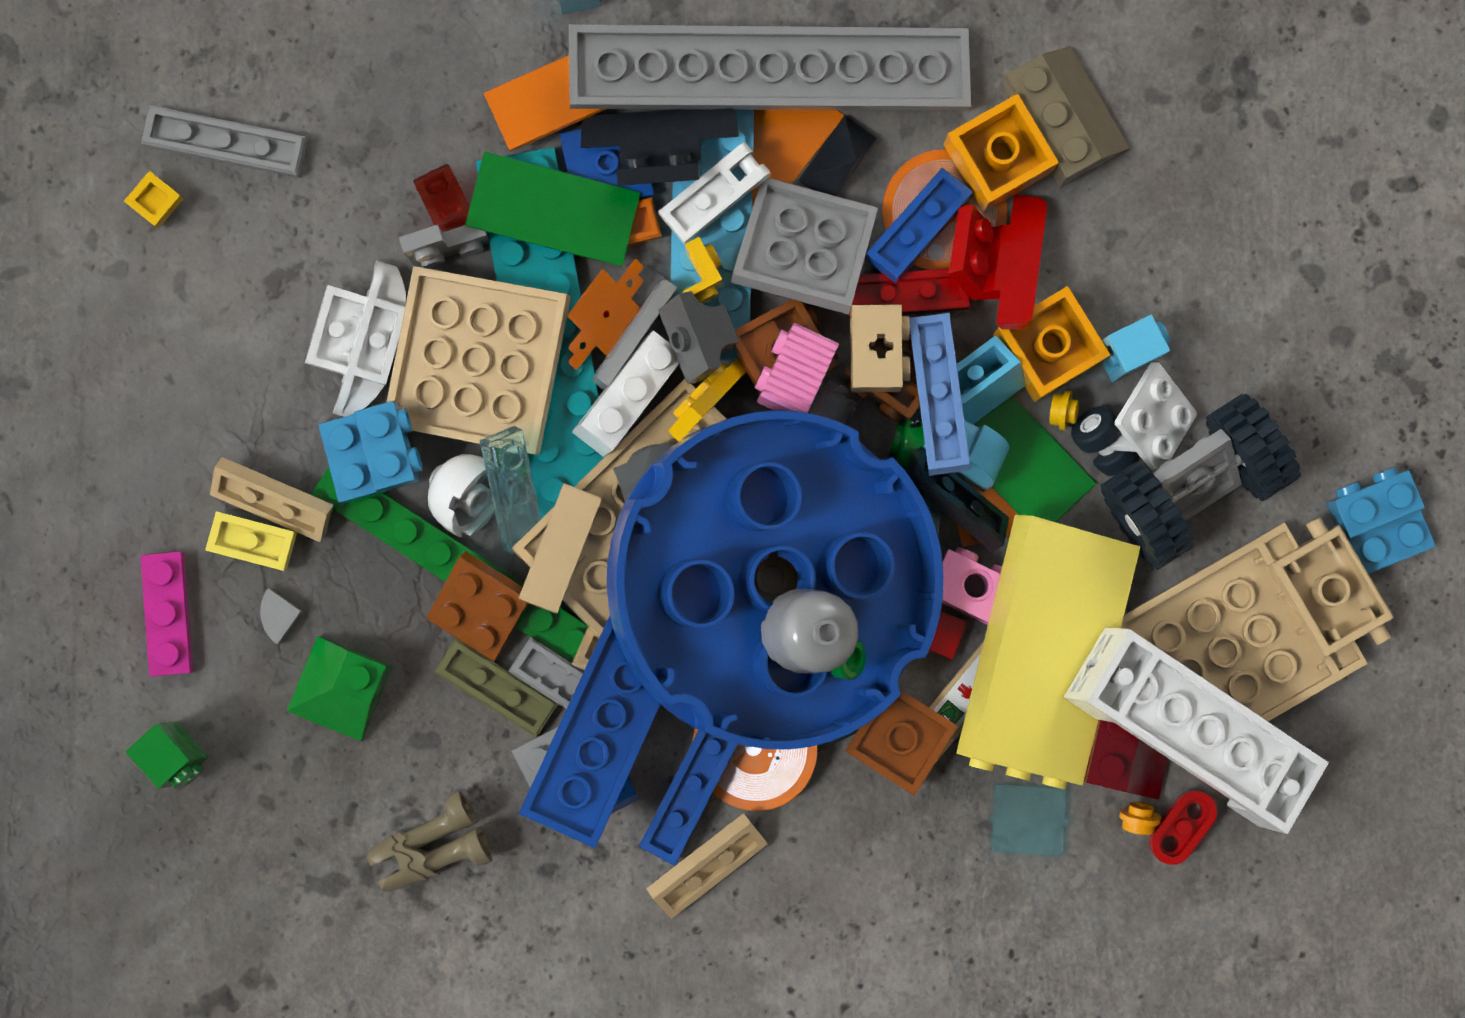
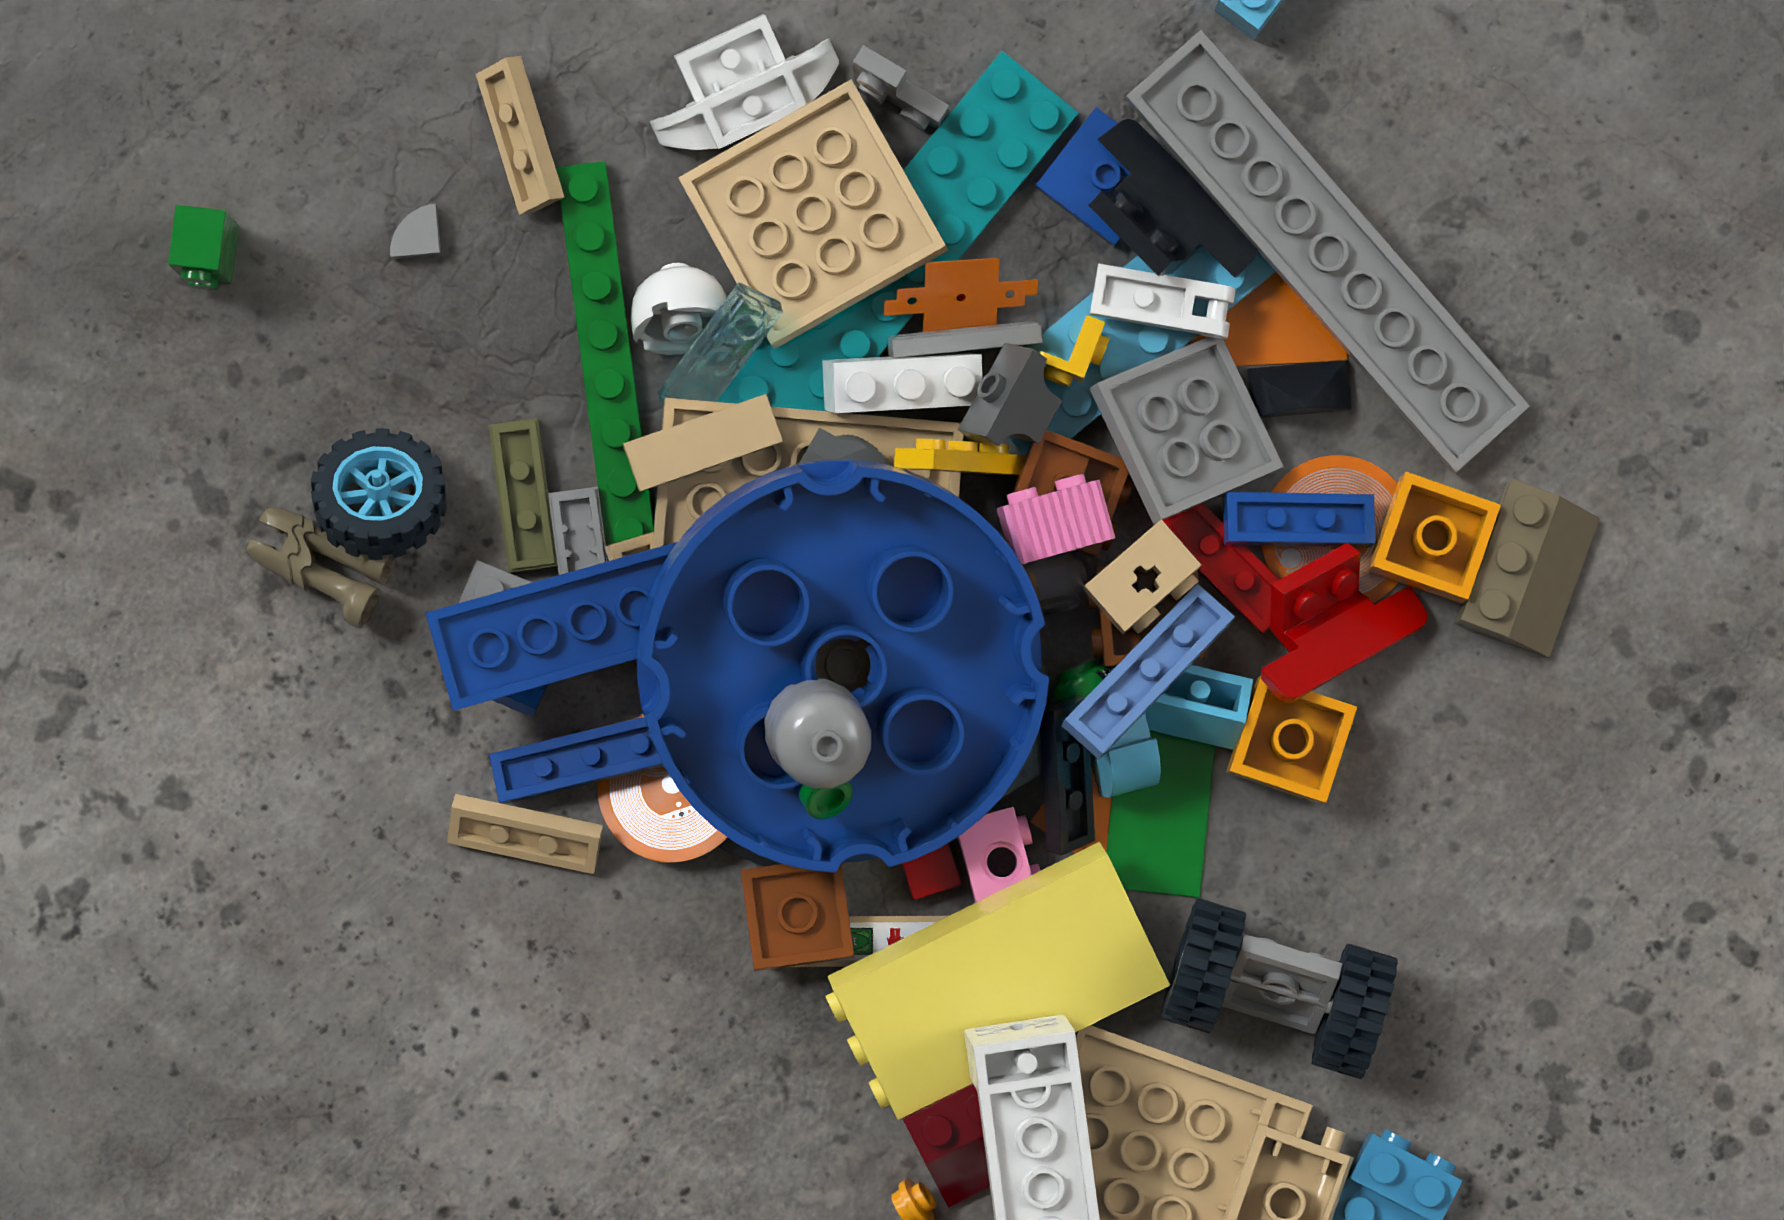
camera: 50 degrees right, 0 degrees up
(166, 614) = (331, 130): dark pink plate -> none
(251, 541) = (465, 150): light yellow plate -> none
(339, 688) = (398, 350): green slope -> none
(370, 451) = (643, 190): dark azure plate -> none
(393, 760) = (383, 531): none -> black wheel
(443, 198) = (939, 53): clear red bracket -> none
(478, 606) = (585, 413): dark orange plate -> none
(535, 105) = (1102, 59): orange window -> none
(552, 209) = (1017, 162): green piece -> none
(645, 224) = (1075, 252): orange tile -> none
(1028, 820) = (824, 1101): clear light blue piece -> none
(1063, 410) = (1241, 805): yellow plate -> none
(1135, 347) = (1354, 820): medium azure brick -> none
(1148, 425) = (1292, 895): white plate -> none

